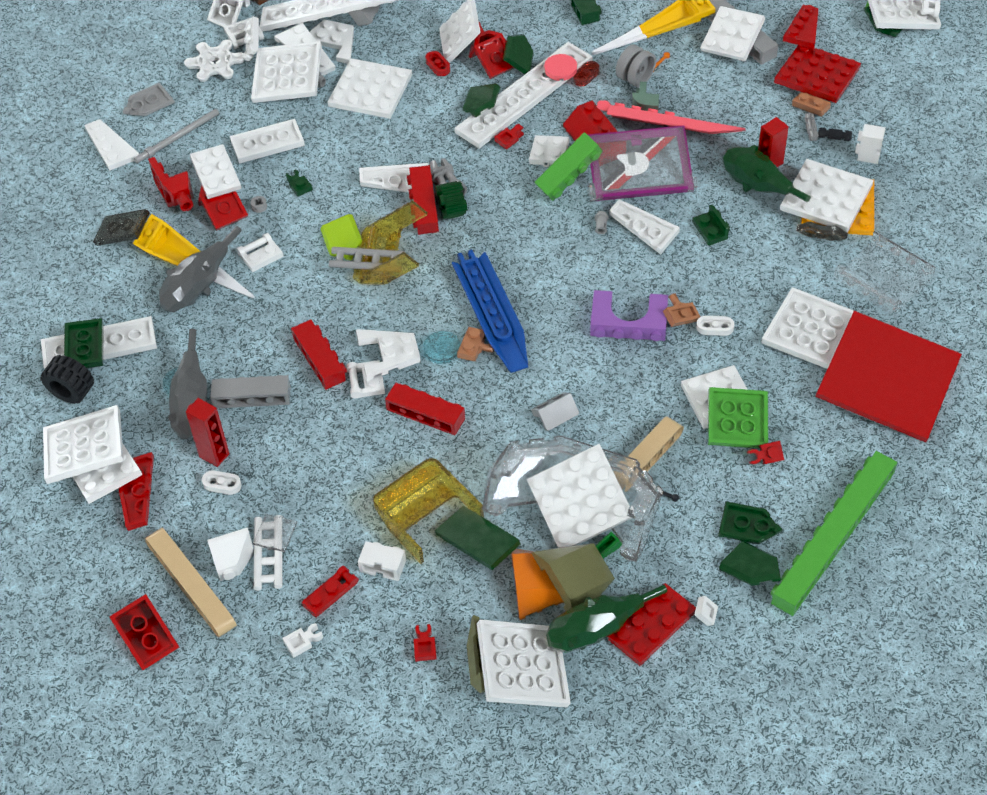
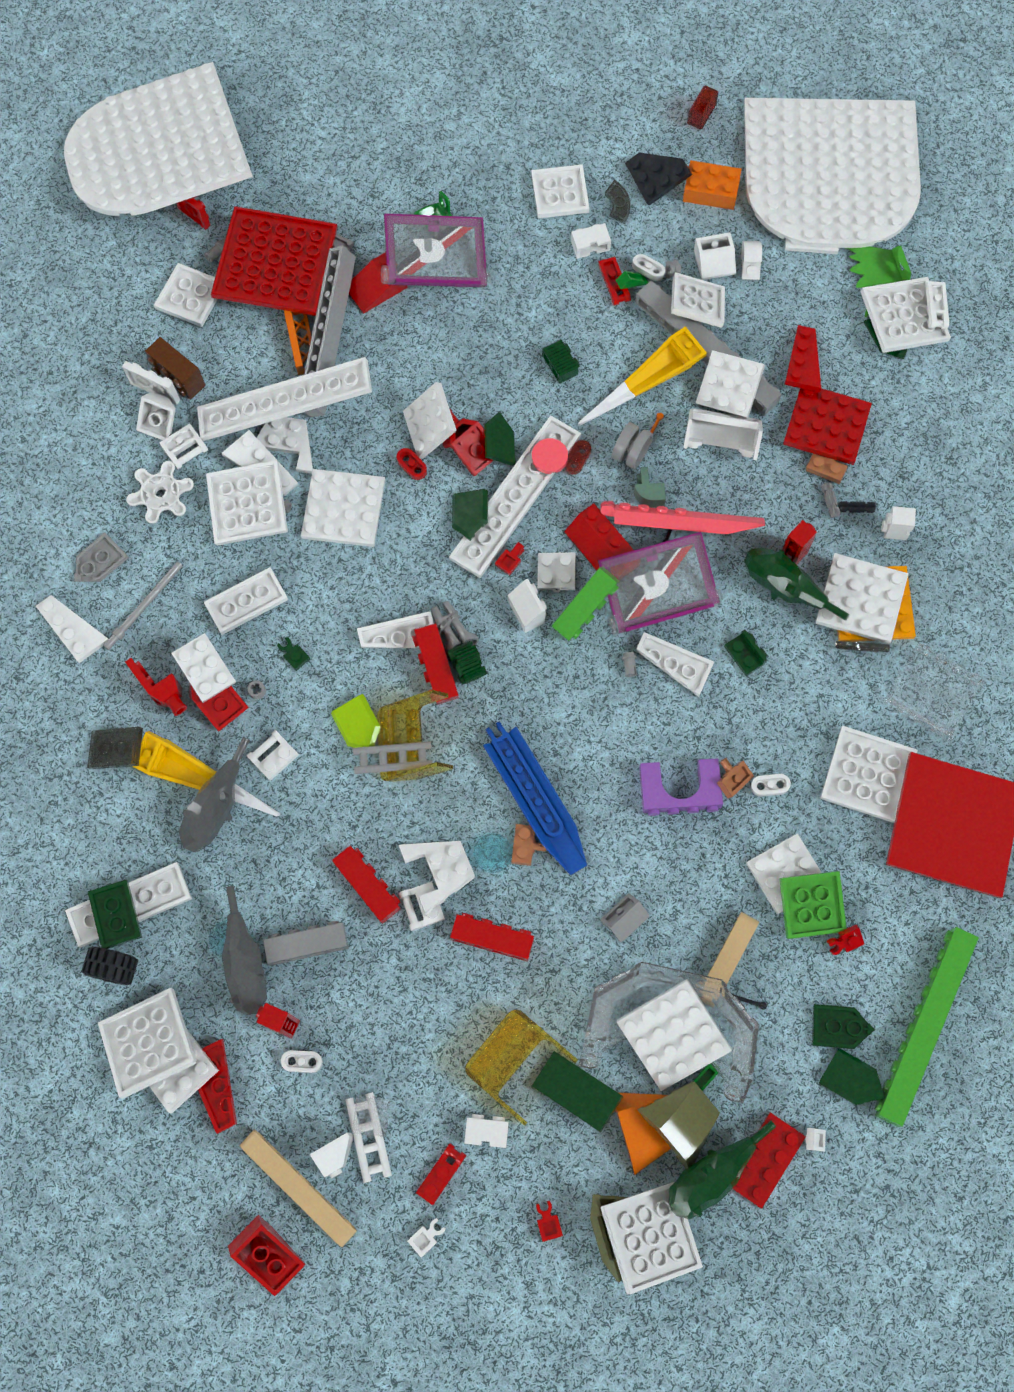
camera: 10 degrees left, 20 degrees up
(251, 38) = (196, 460): white plate -> none
(516, 167) = (527, 606): none -> white slope
(718, 67) = (724, 431): none -> white windscreen

